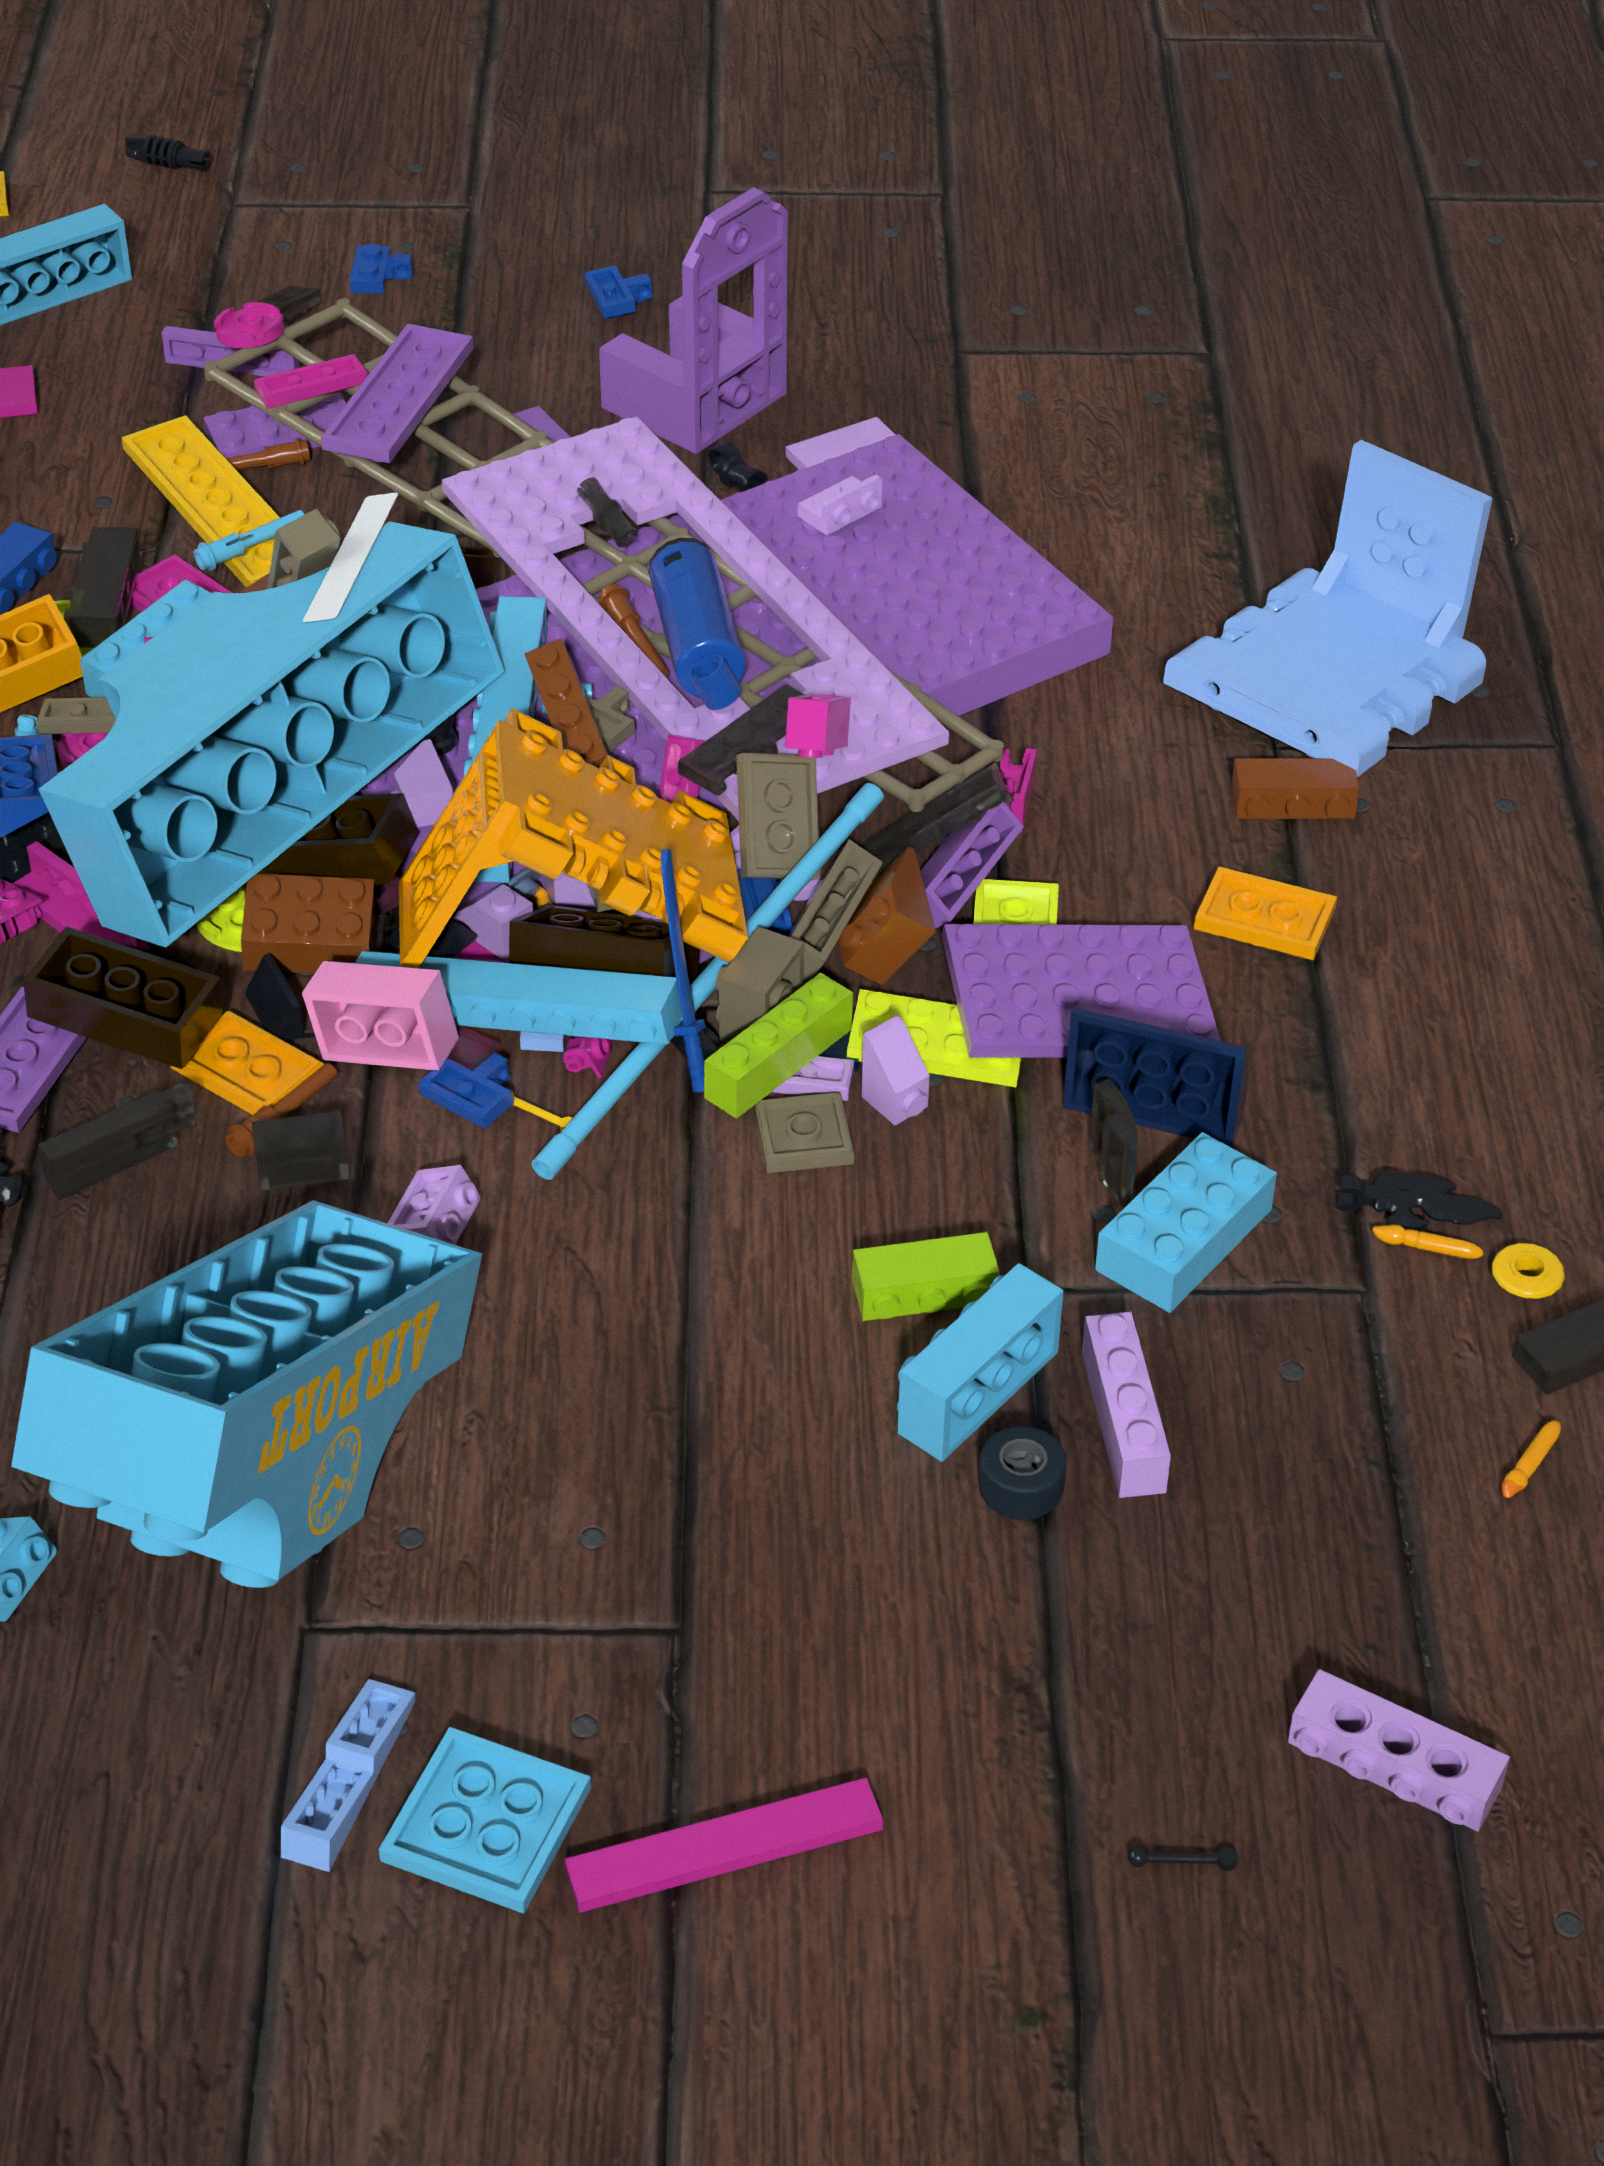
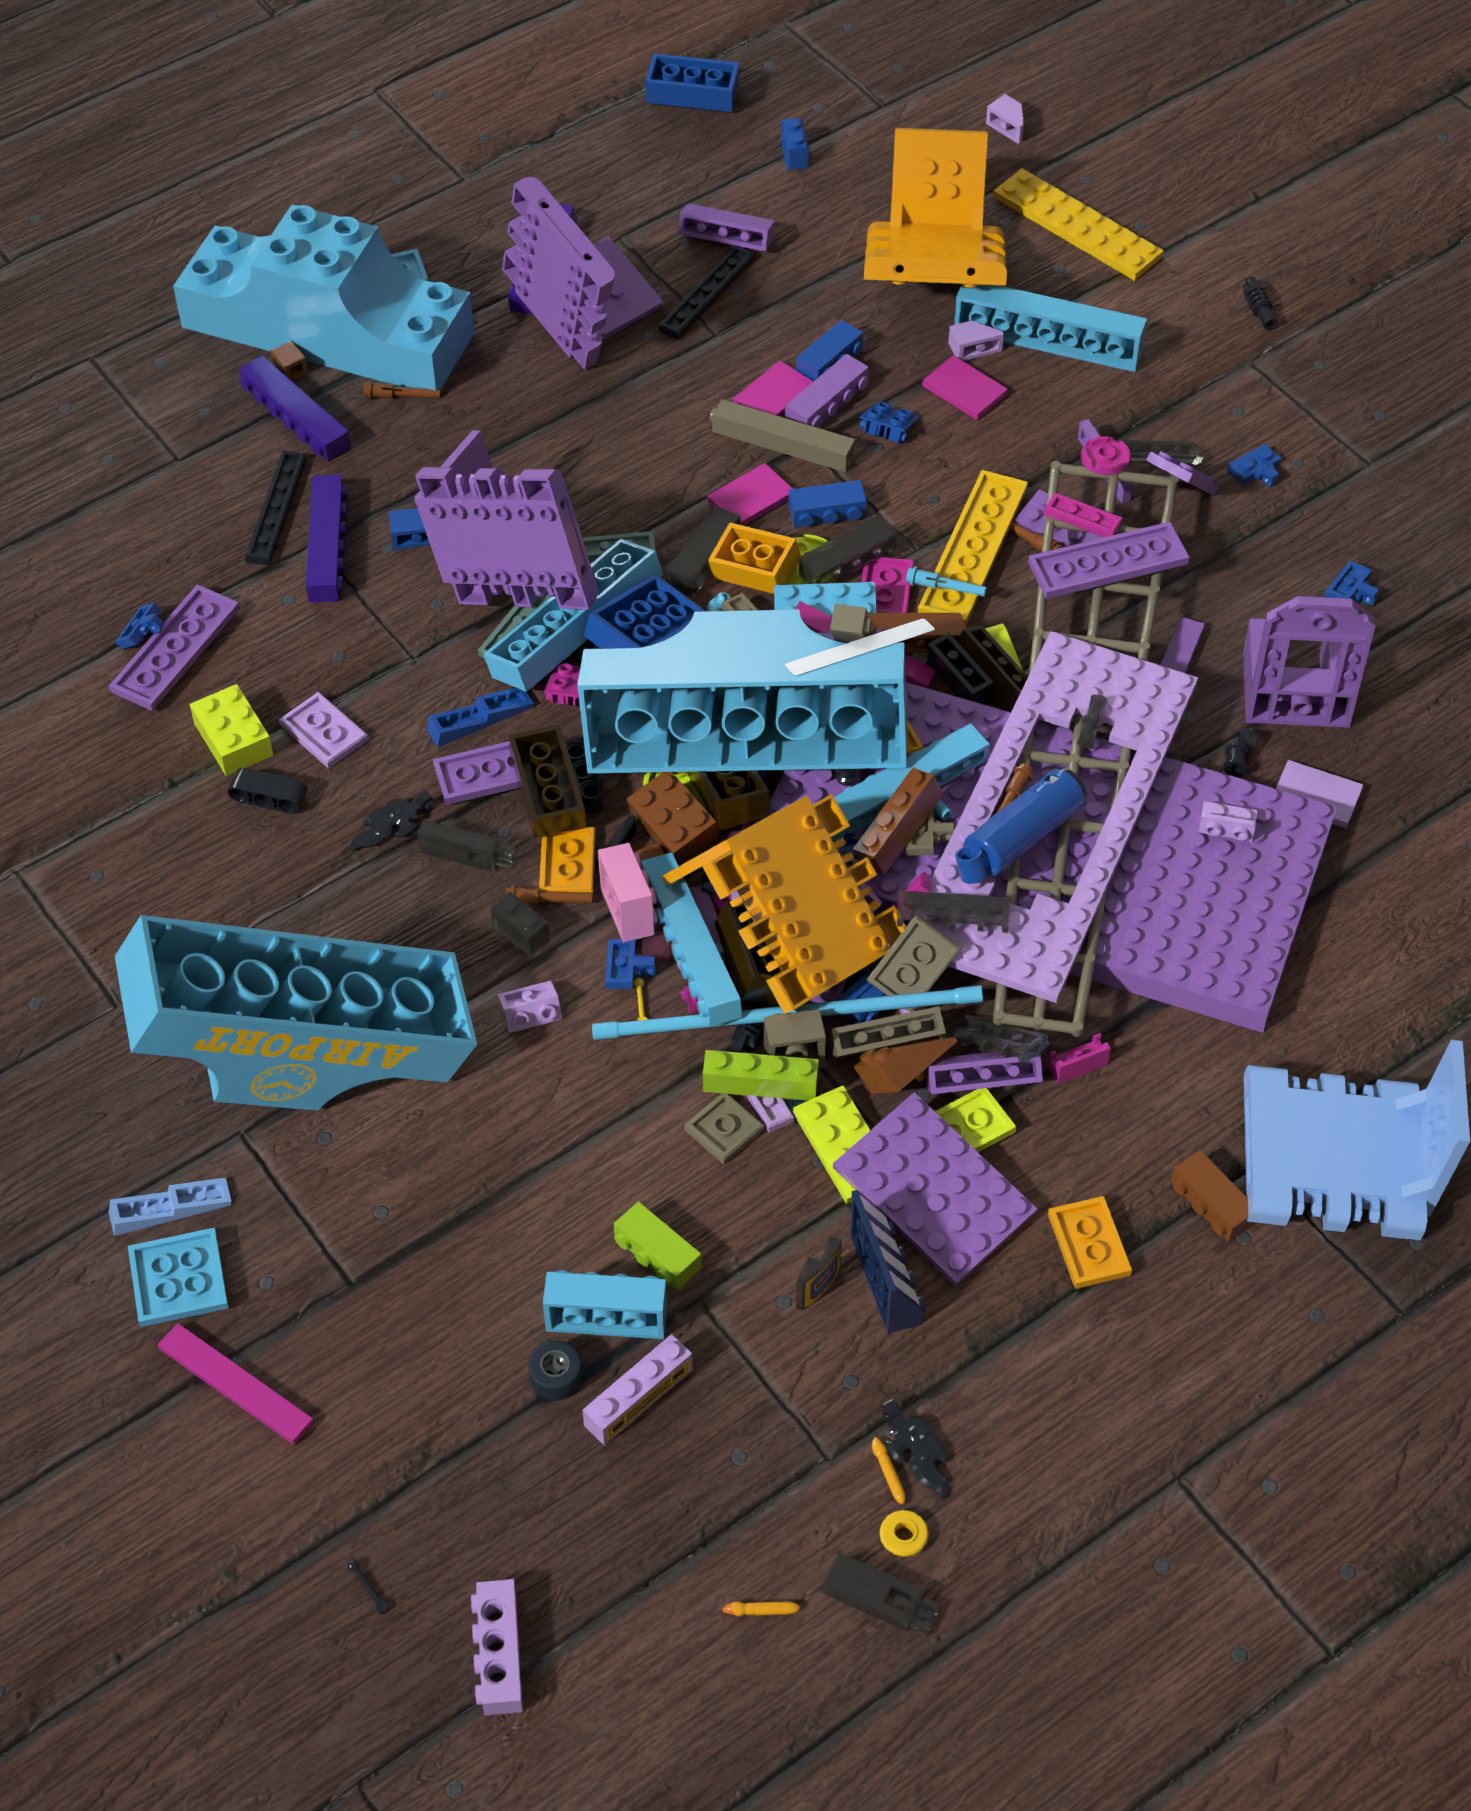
camera: 55 degrees right, 10 degrees up
(357, 283) = (1183, 471): none -> medium lavender plate
(423, 784) = (795, 787): lavender slope -> none
(689, 1026) = (731, 1026): blue sword -> none
(817, 724) = (972, 932): dark pink brick -> none
(893, 1072) = (787, 1140): lavender slope -> none
(1185, 1222) = (796, 1342): medium azure brick -> none

